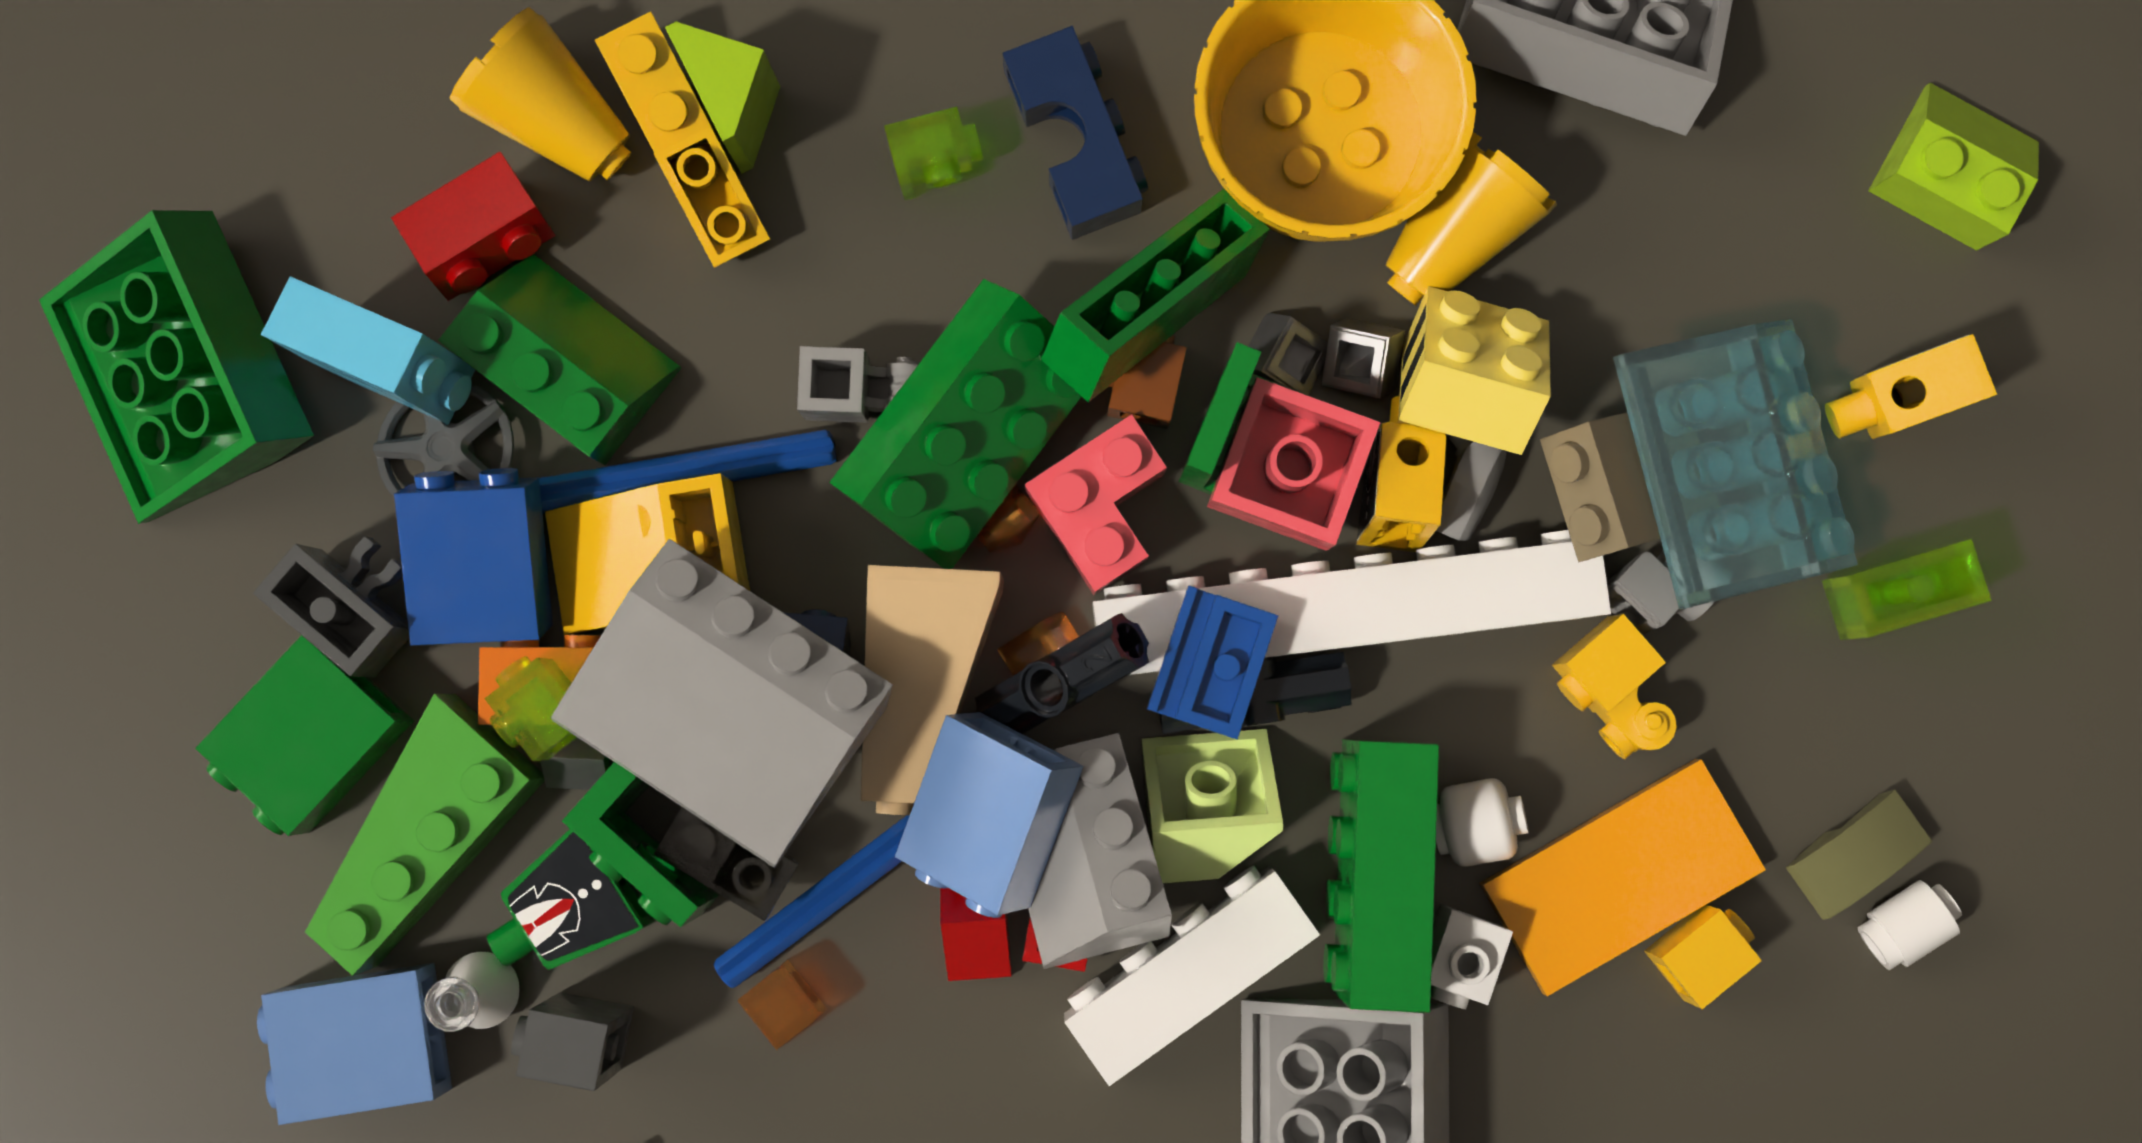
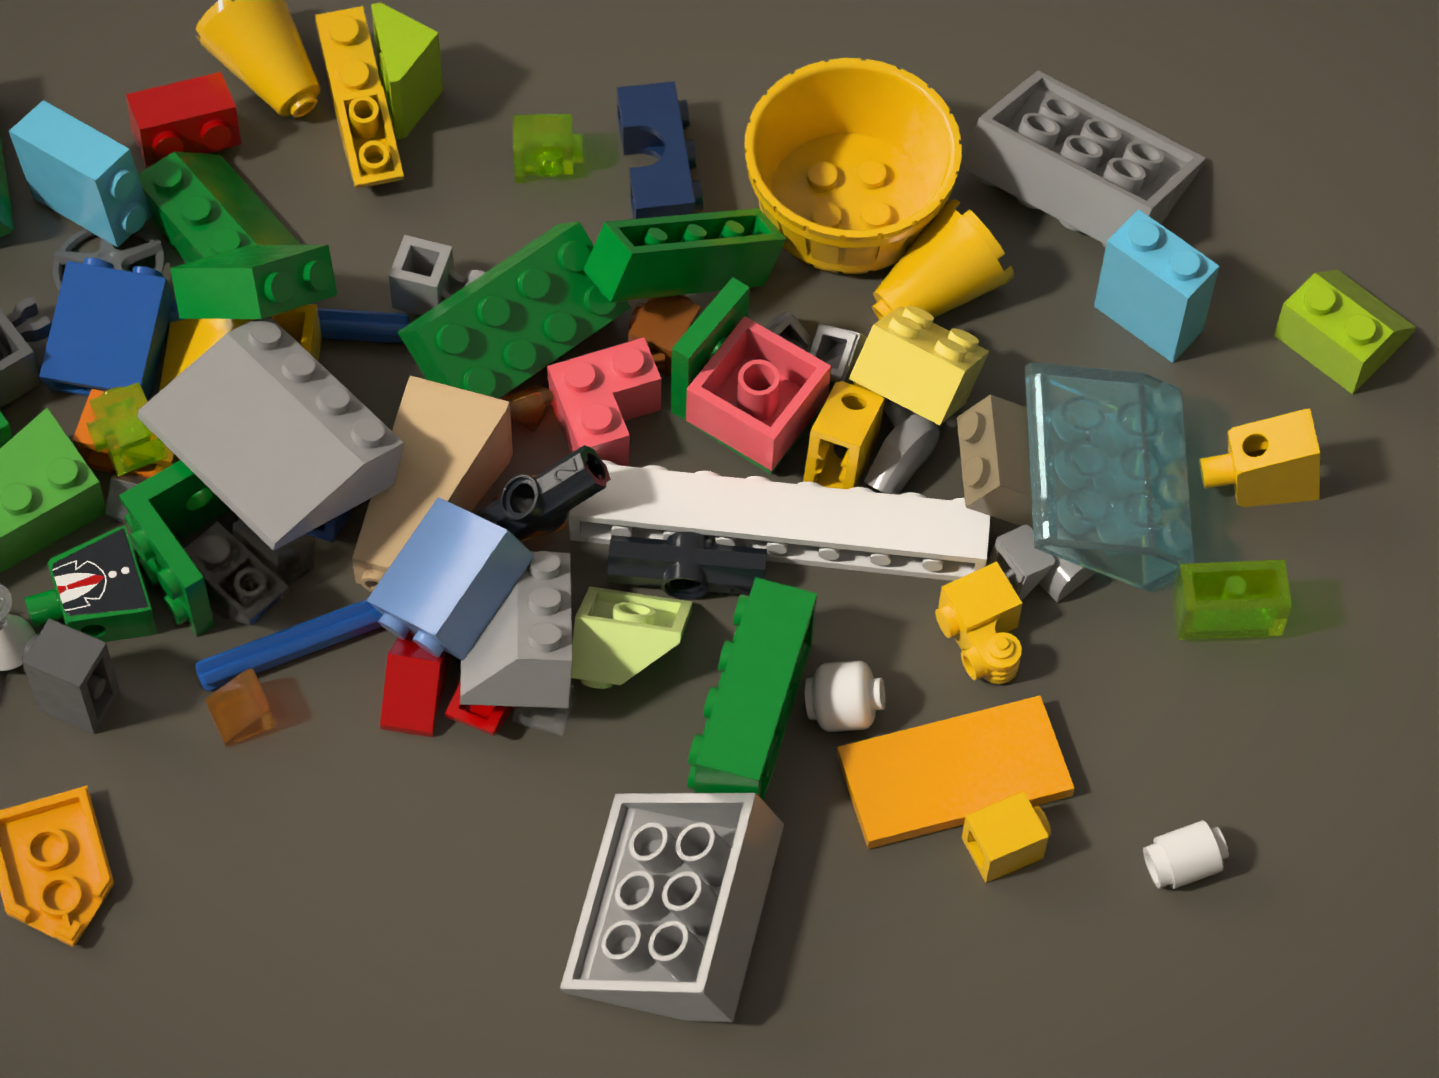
camera: 15 degrees right, 25 degrees down
(638, 486) = (253, 281): none -> green brick
(1188, 974) = (577, 754): white brick -> none
(1212, 662) = (657, 513): blue plate -> none
(1466, 957) = (807, 791): white brick -> none
(1739, 185) = (1155, 285): none -> medium azure brick
(1859, 855) = (1153, 793): olive slope -> none

